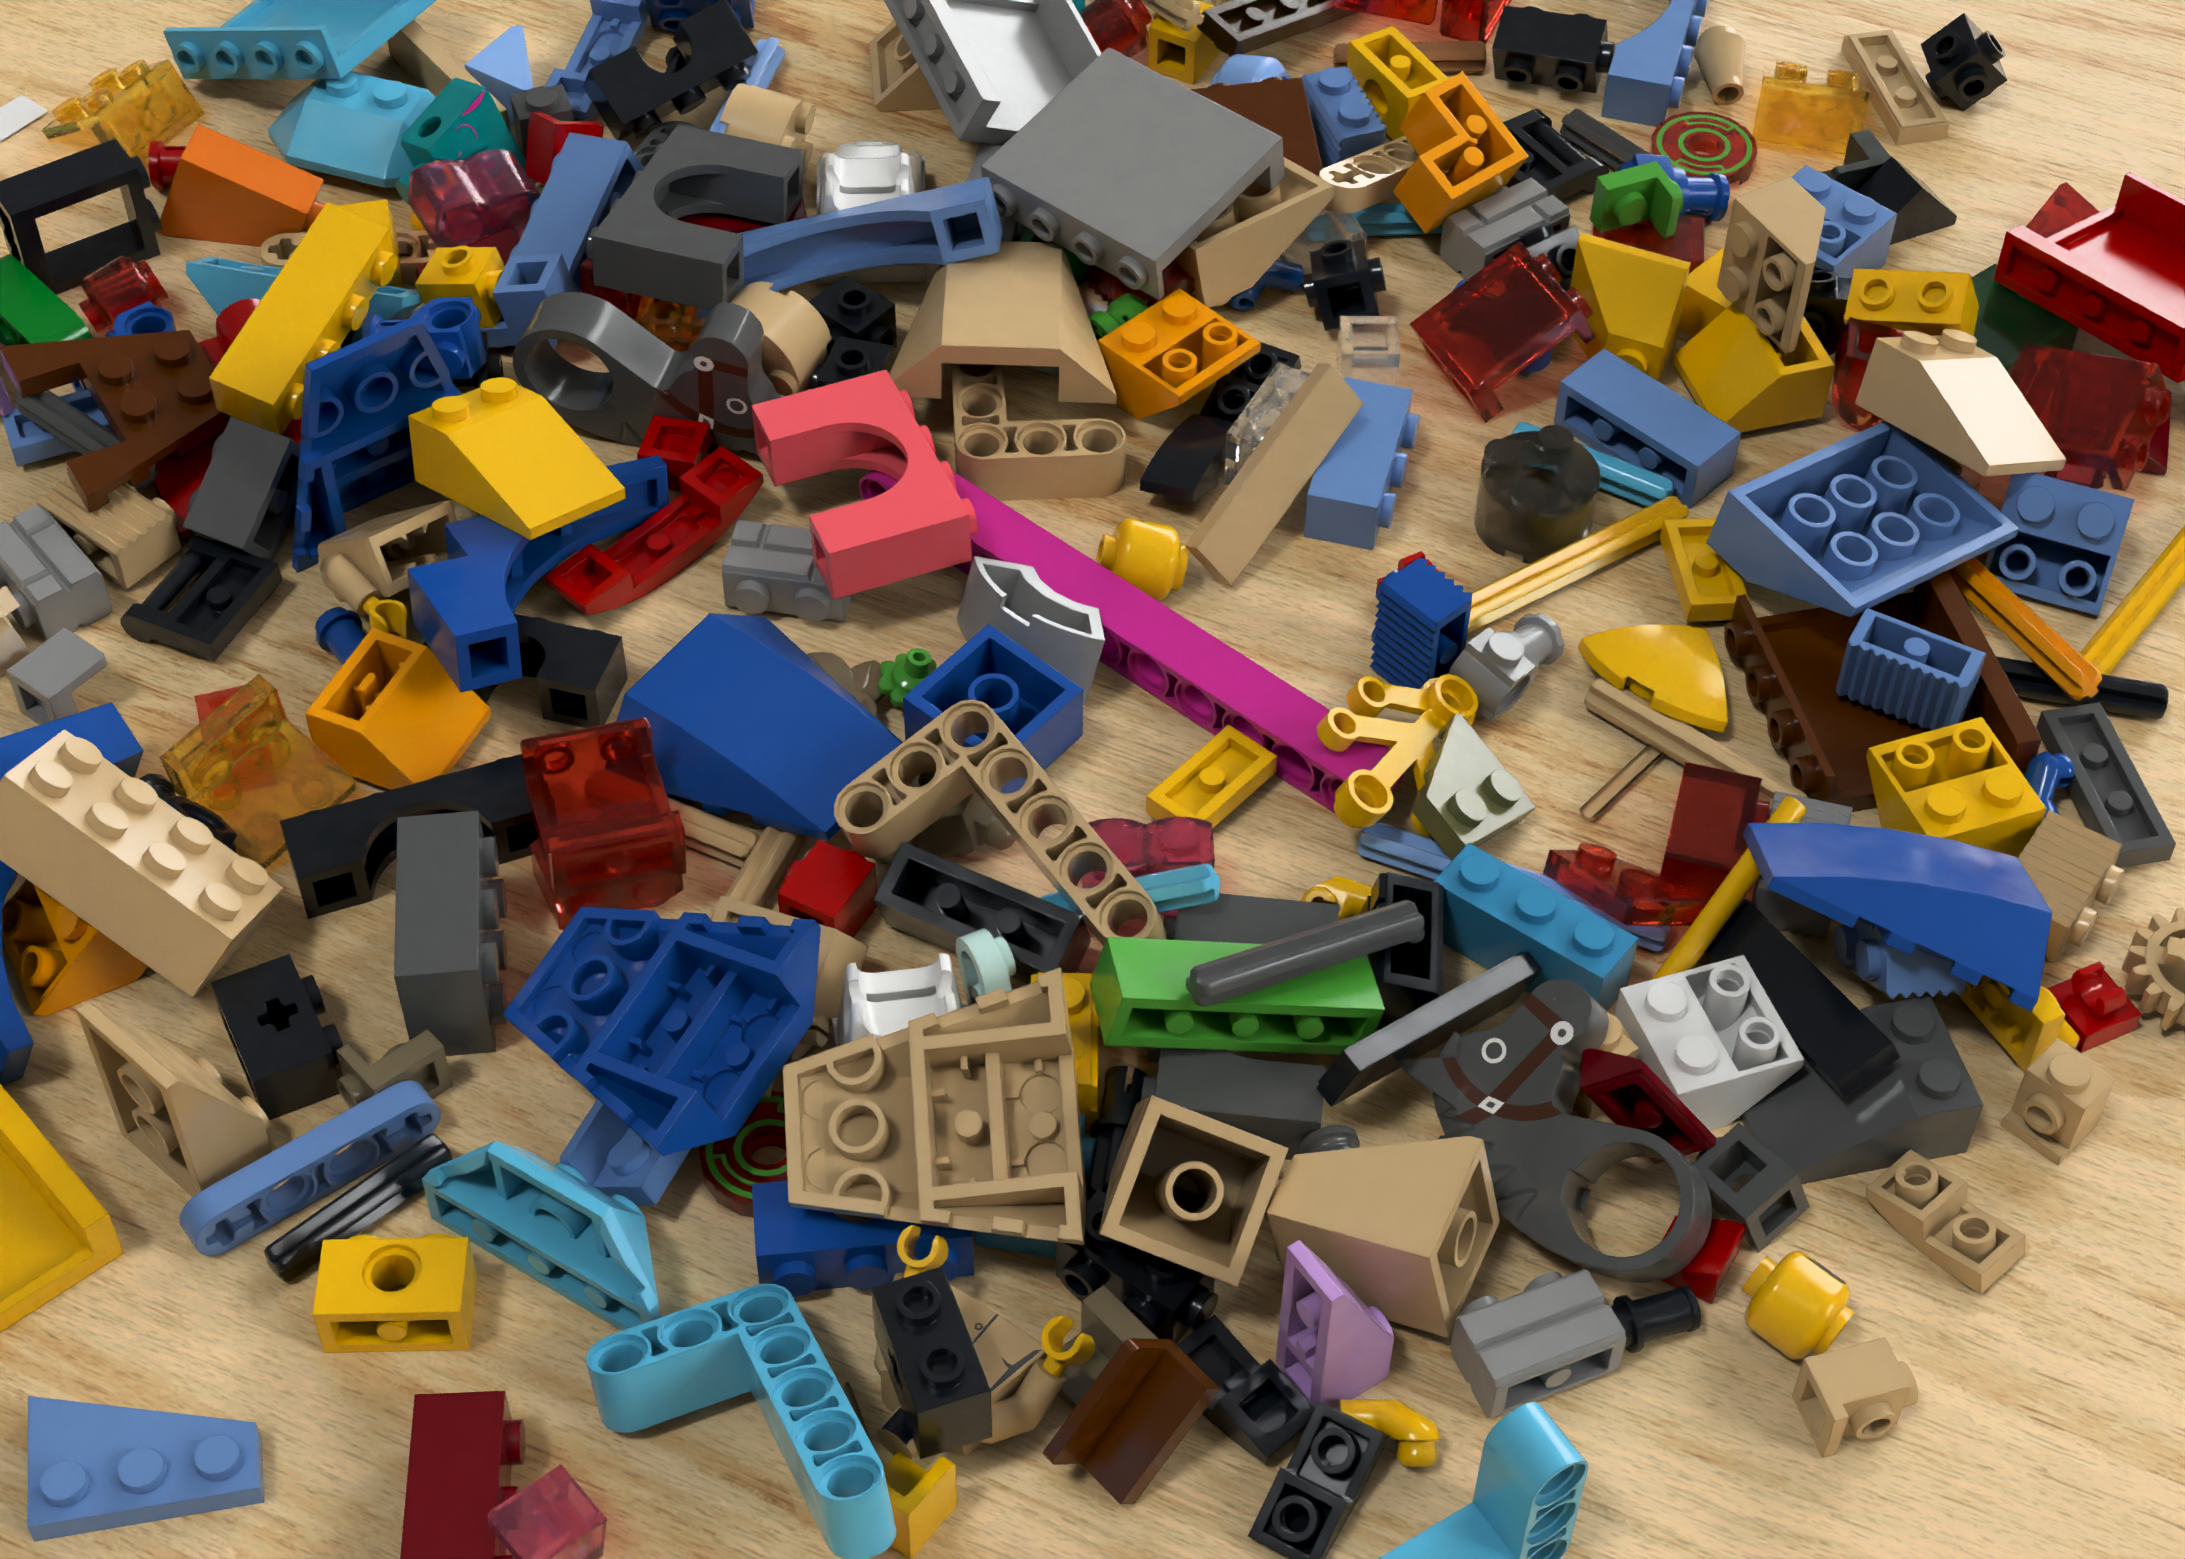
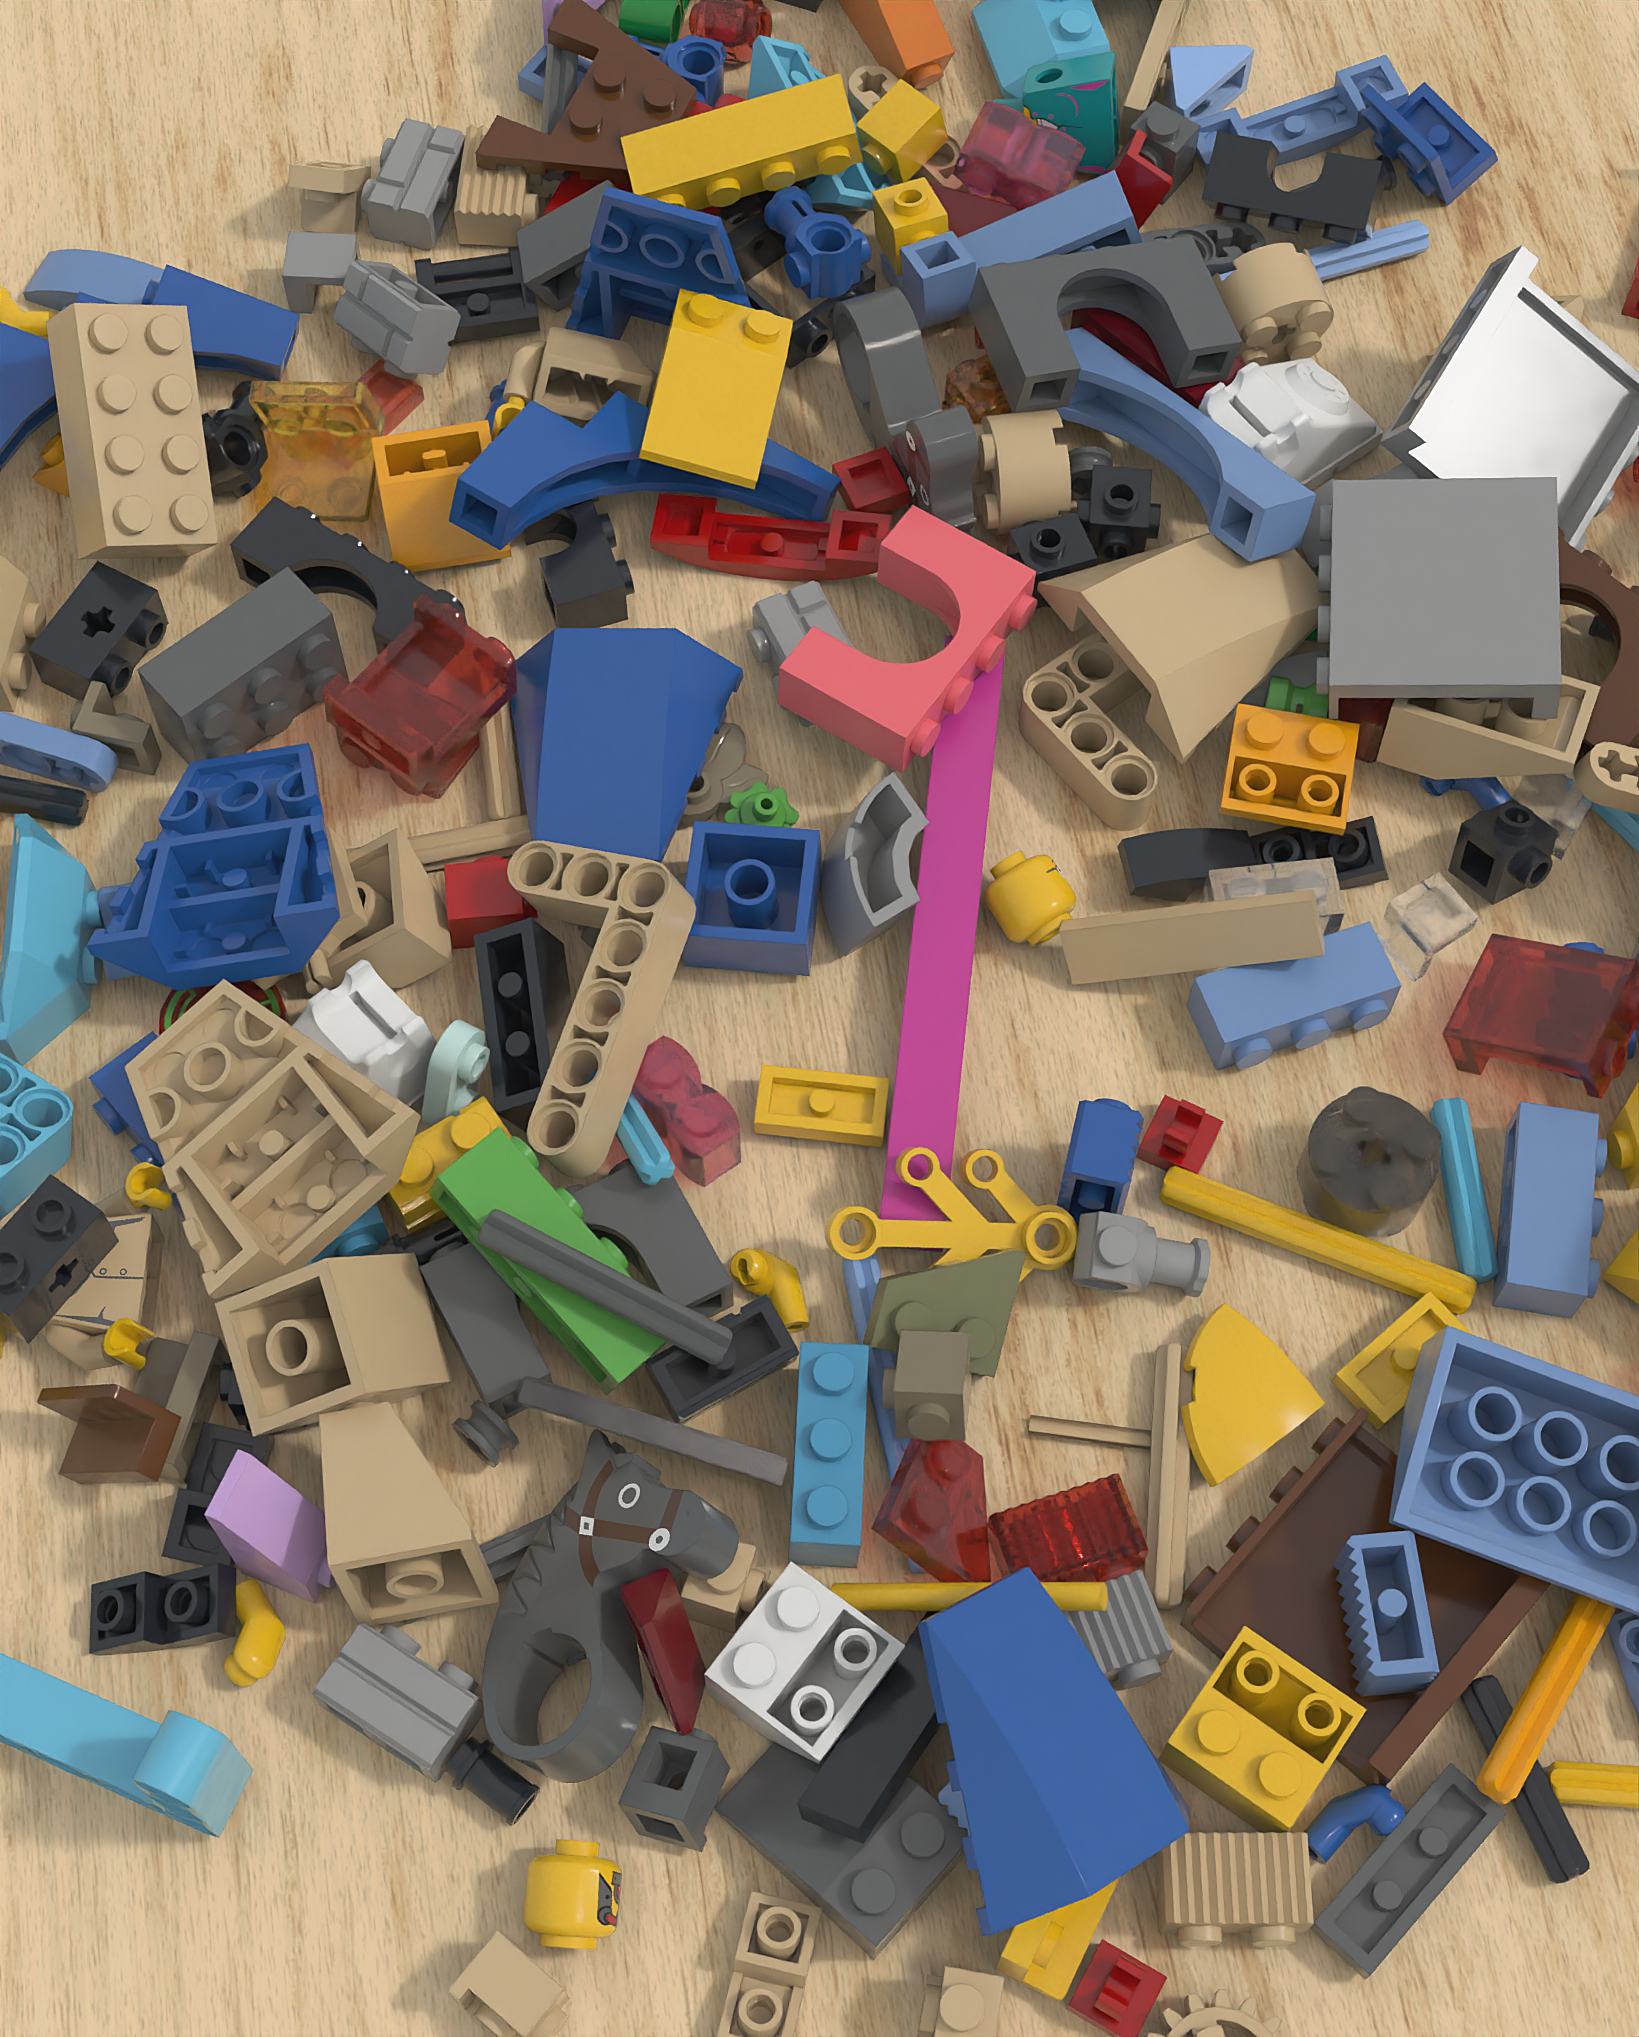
camera: 55 degrees right, 15 degrees up
(183, 648) = (396, 319): none -> light grey brick
(1534, 822) = (930, 1385): none -> dark tan brick
(1713, 1261) = (590, 1798): red slope -> none

